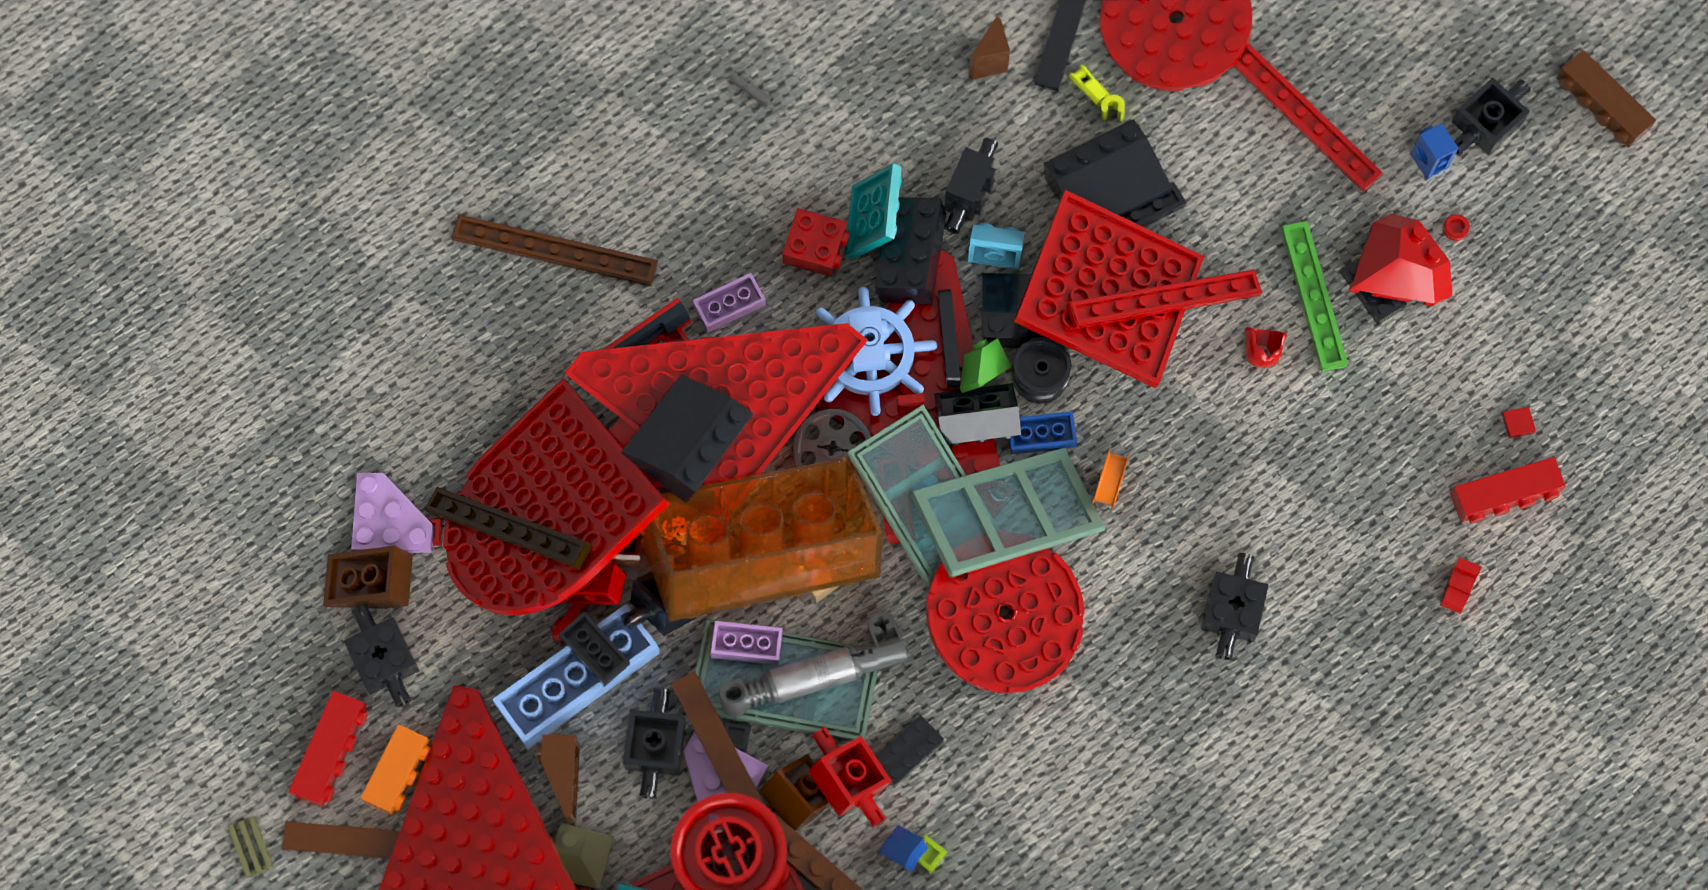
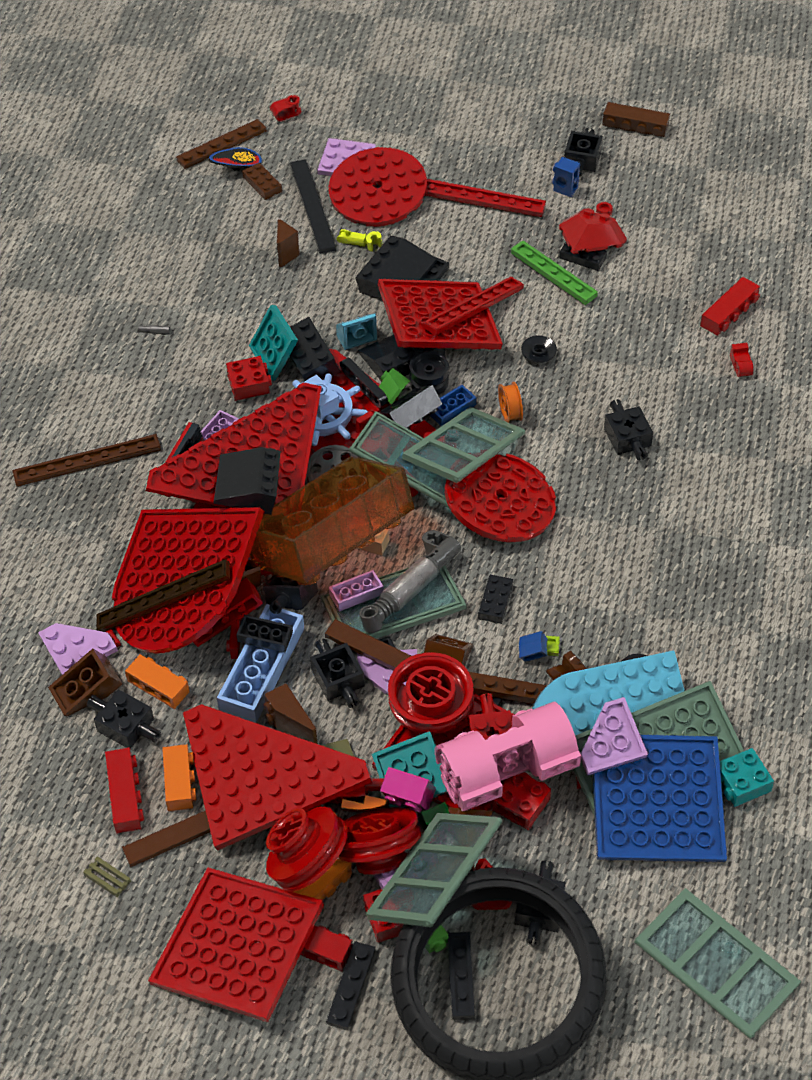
camera: 30 degrees left, 20 degrees down
(449, 625) = (157, 681): none -> orange brick
(849, 776) = (472, 624): red brick -> none
(969, 185) = (320, 306): black brick -> none
(1210, 399) = (538, 349): none -> black dish
(1259, 337) = (546, 307): red hair -> none
(1518, 422) = (710, 276): red tile -> none

